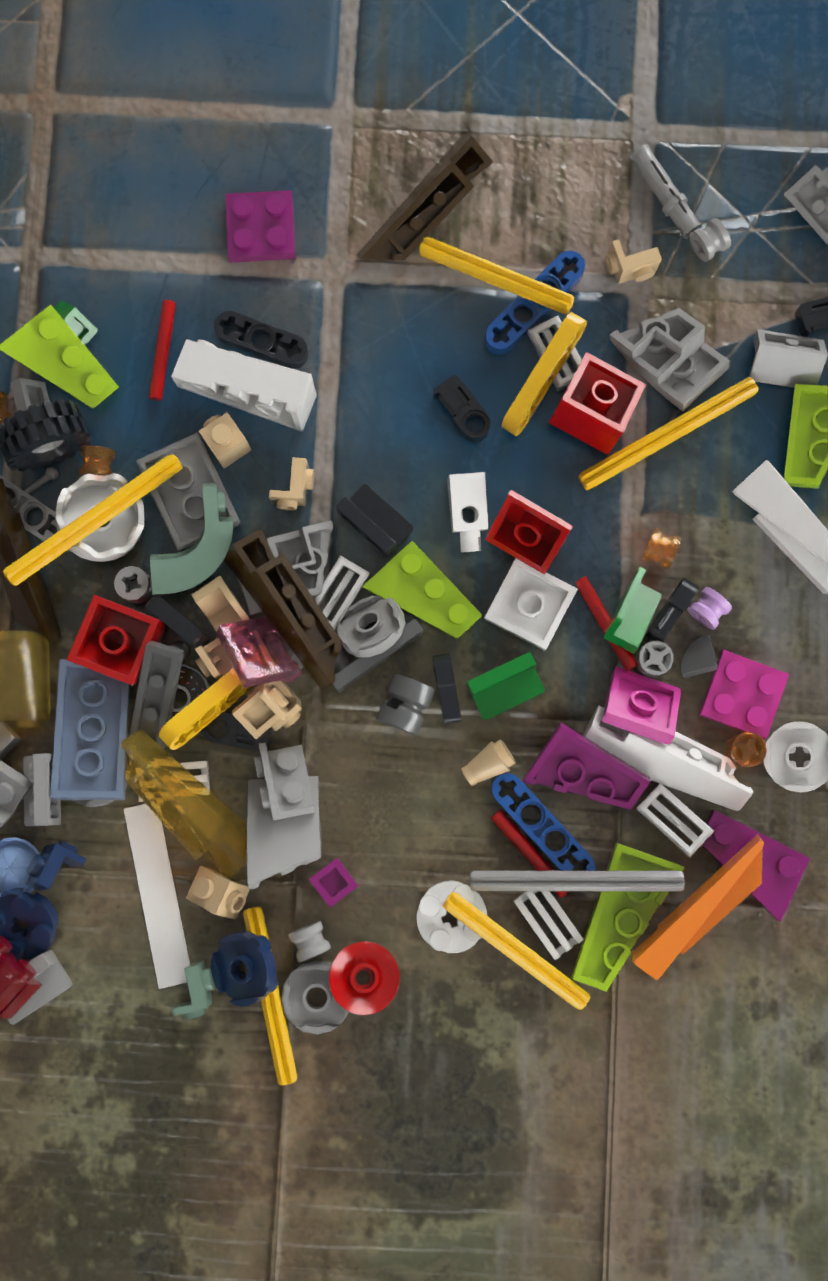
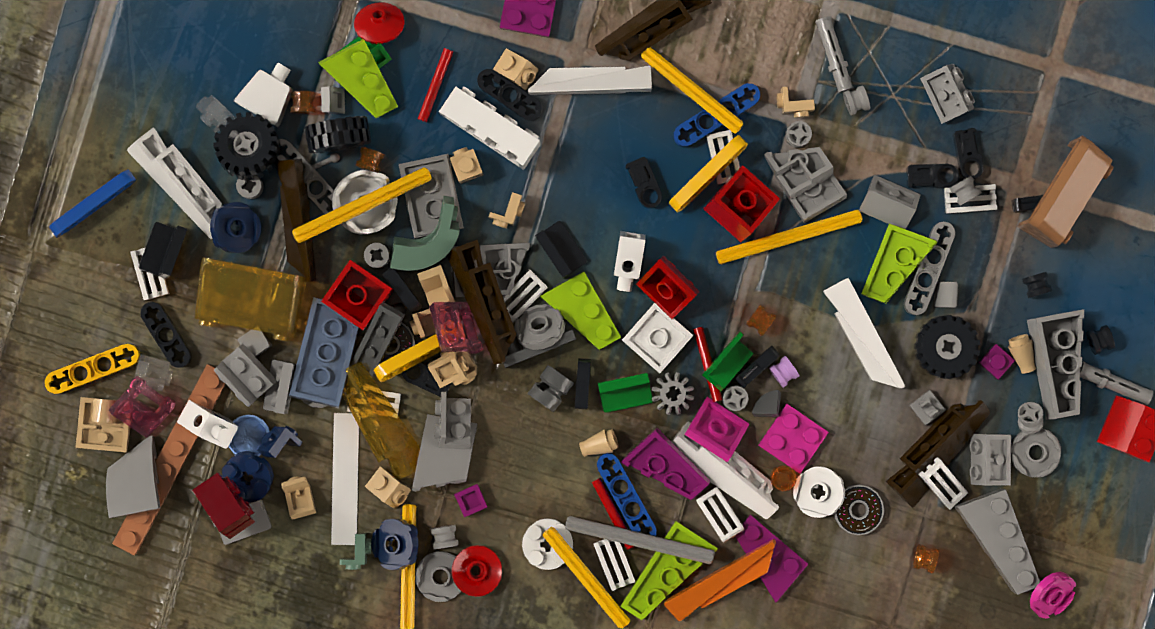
camera: 10 degrees right, 5 degrees up
(70, 286) = (379, 22): none -> red dish
(98, 935) = (299, 497): none -> tan bracket
(263, 303) = (516, 69): none -> tan bracket
(365, 296) = (593, 81): none -> white wedge
(558, 668) = (665, 389): none -> light grey gear
(652, 294) = (798, 130): none -> light grey wheel

